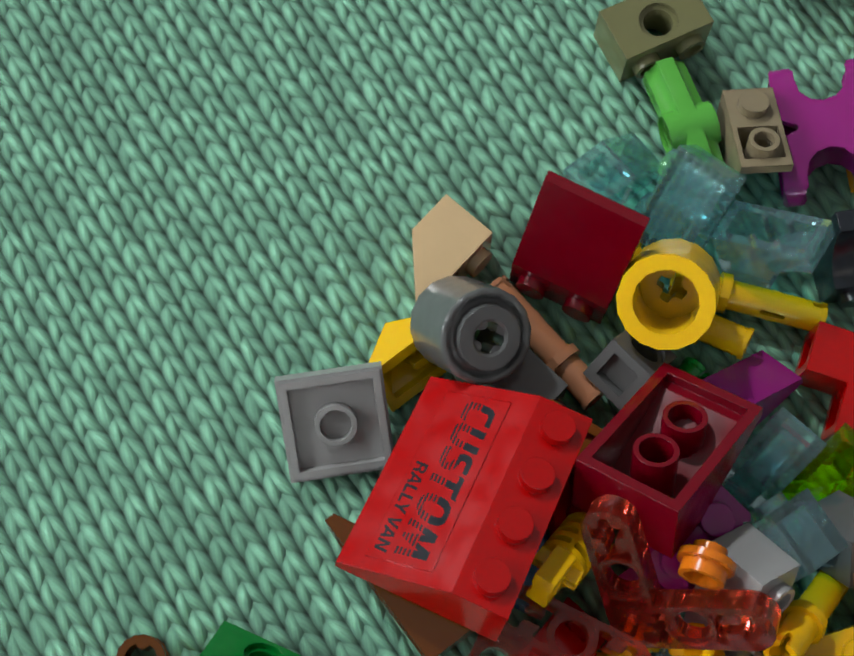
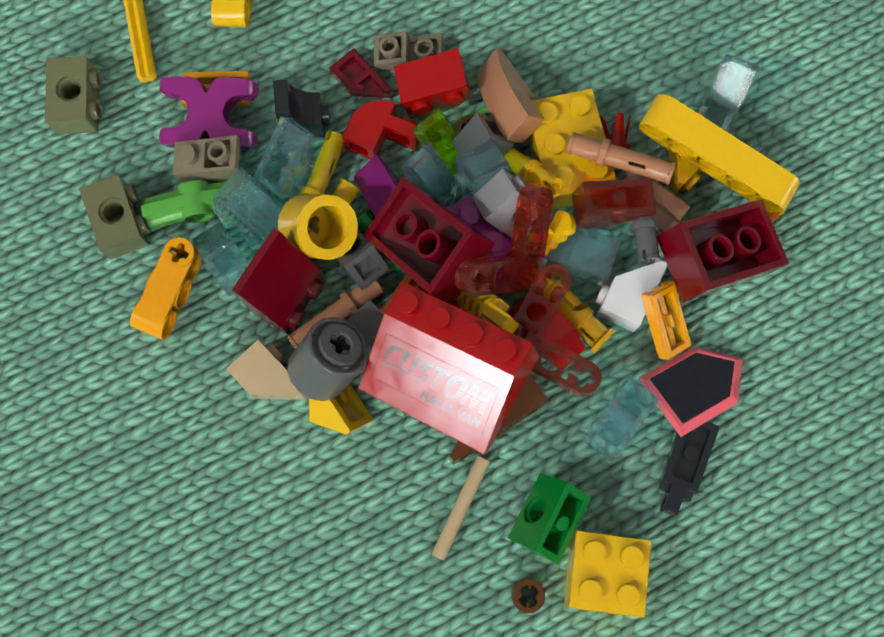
camera: 85 degrees left, 5 degrees up
(269, 550) = (460, 508): none -> tan bar
(334, 421) = (379, 457): light grey tile -> none
(555, 107) = (167, 289): none -> light orange piece
(705, 564) = (500, 223): orange plate -> none

